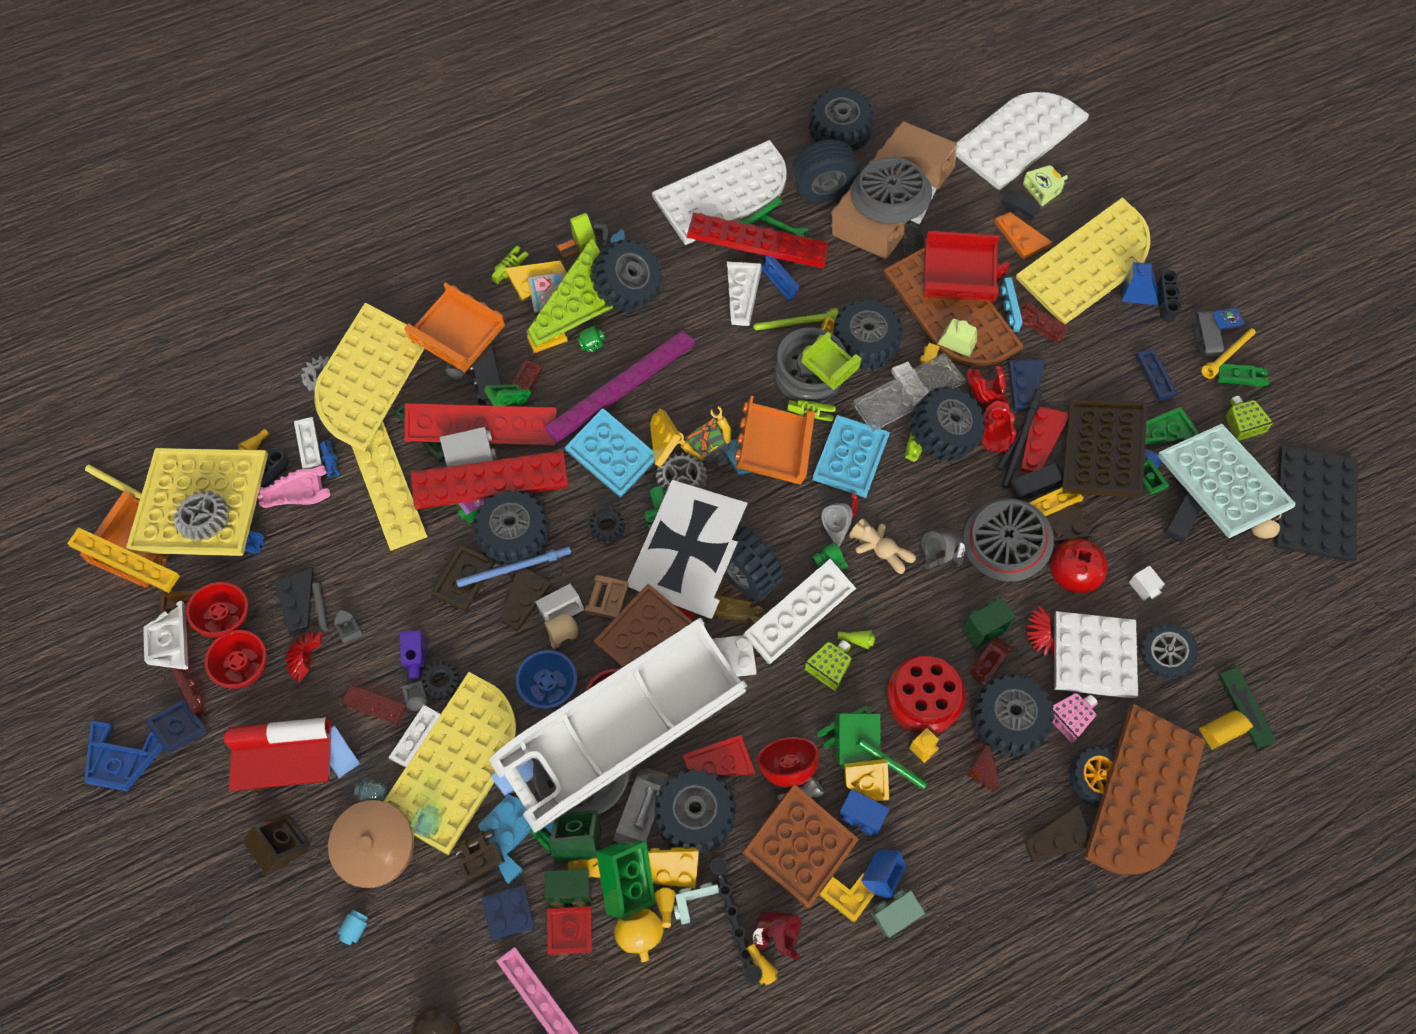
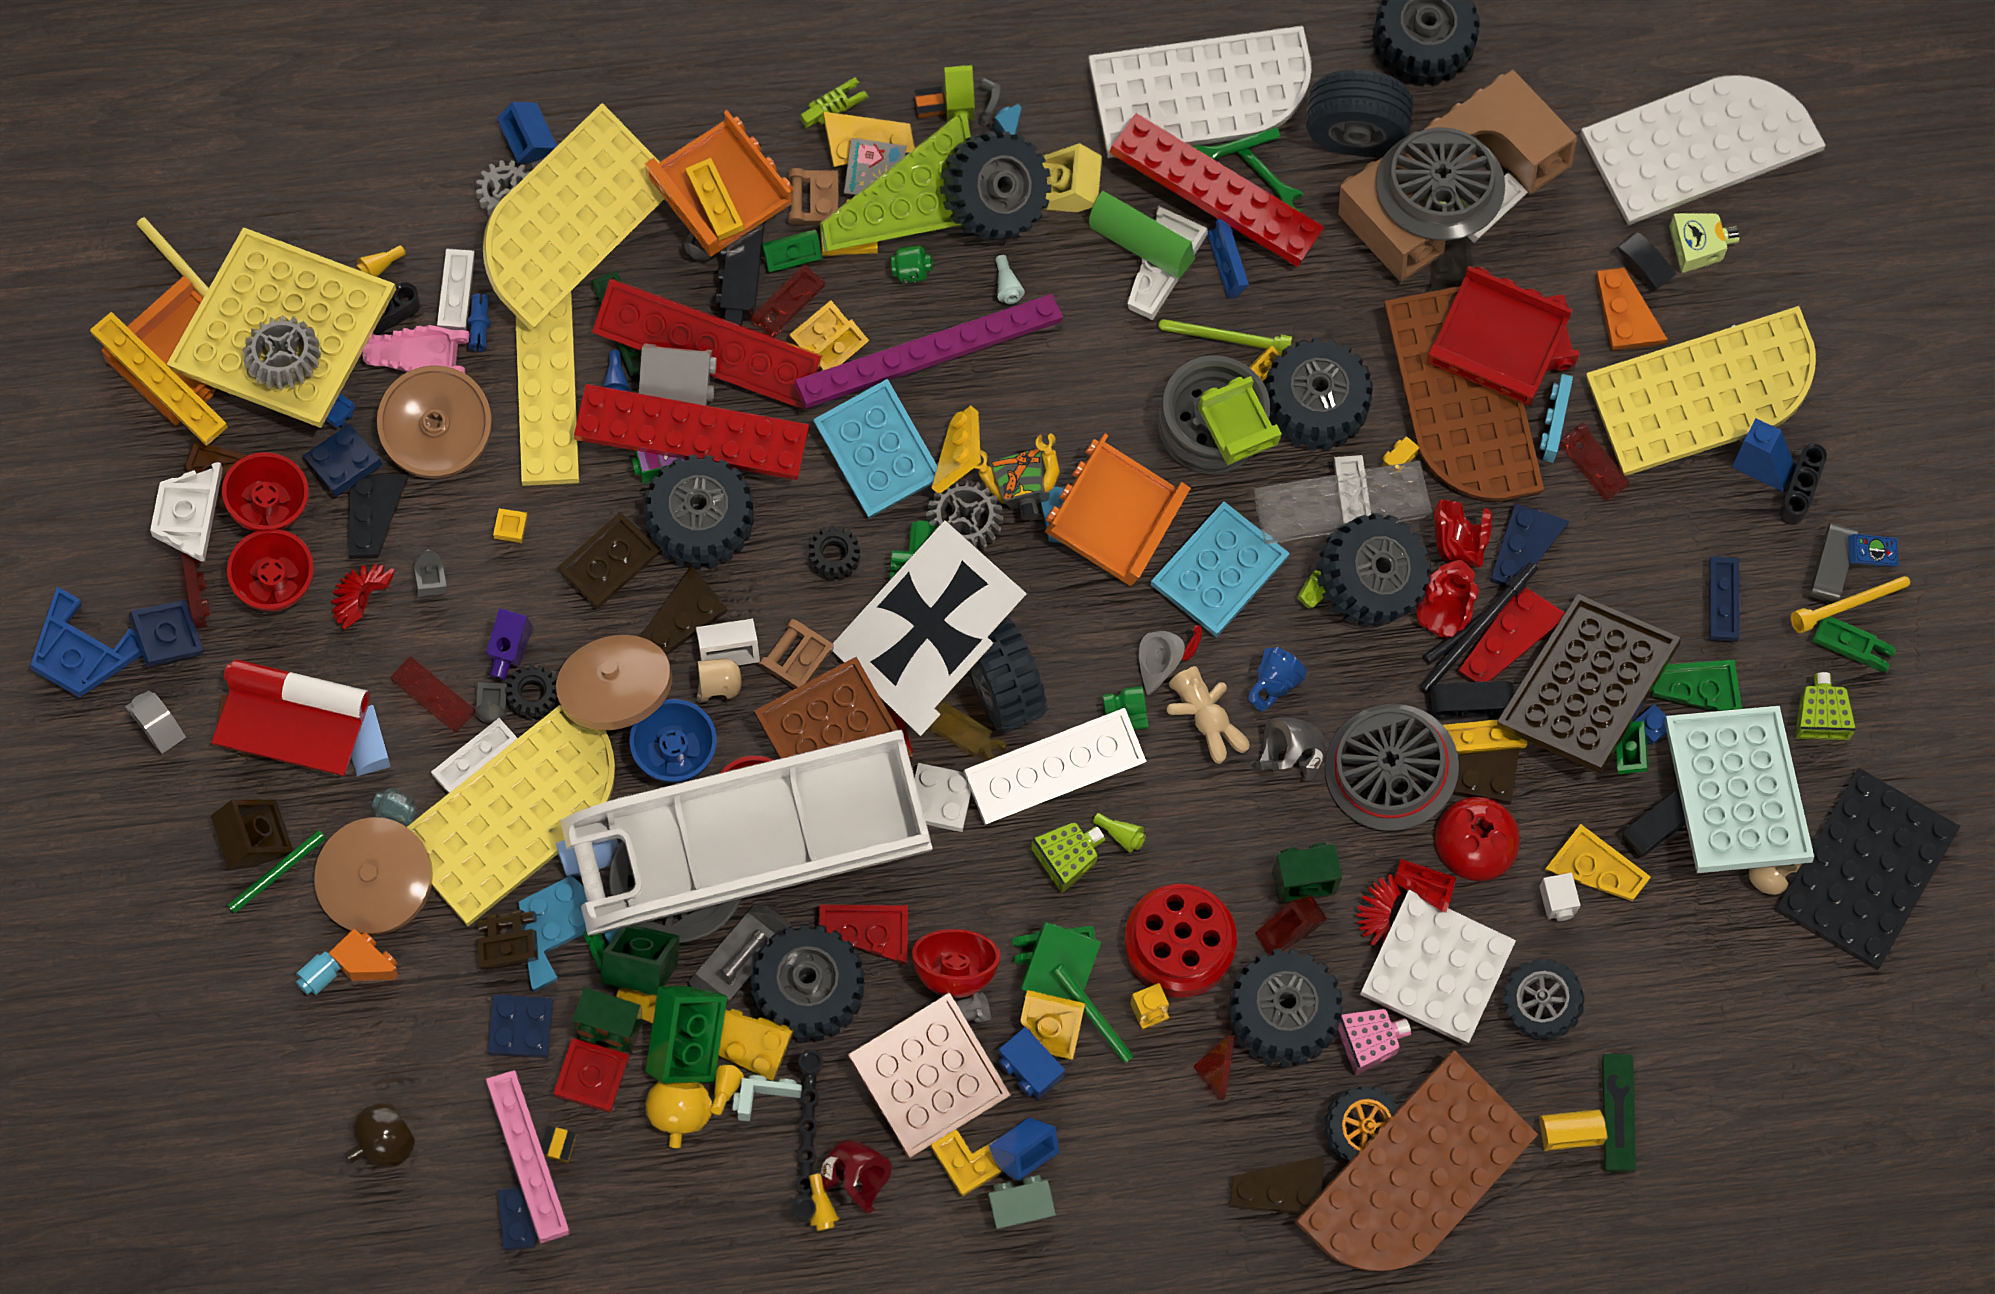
camera: 15 degrees right, 5 degrees up
(185, 789) = (155, 721): none -> light grey brick
(265, 572) = (342, 460): none -> dark blue plate
(301, 864) = (275, 872): none -> green bar
(319, 528) = (434, 421): none -> medium nougat dish
(320, 608) = (401, 533): dark grey piece -> none
(322, 337) = (526, 132): none -> blue brick
(380, 906) = (362, 960): none -> orange slope
(390, 577) = (510, 525): none -> yellow plate
(426, 821) = (454, 872): clear light blue head -> none
(427, 461) = (615, 375): none -> blue cone
(455, 336) = (714, 199): none -> yellow plate
(493, 655) = (614, 682): none -> medium nougat dish
(507, 395) = (758, 313): green bracket -> none
(514, 354) = (792, 250): none -> green plate
(521, 317) = (822, 195): none -> medium nougat plate
(550, 555) = (739, 569): medium blue bar -> none
(556, 395) = (829, 335): none -> yellow slope
(562, 989) = (558, 1144): none -> tile
(655, 334) = (1009, 288): none -> light aqua cone
(671, 260) = (1073, 178): none -> light yellow slope
(724, 278) = (1141, 235): none -> bright green brick
(802, 406) = (1201, 485): lime hinge -> none
(915, 506) = (1277, 676): none -> blue piece
(959, 337) = (1448, 445): yellowish green torso -> none
(1066, 603) = (1429, 884): none -> red wing
(1160, 556) = (1598, 865): none -> yellow wing

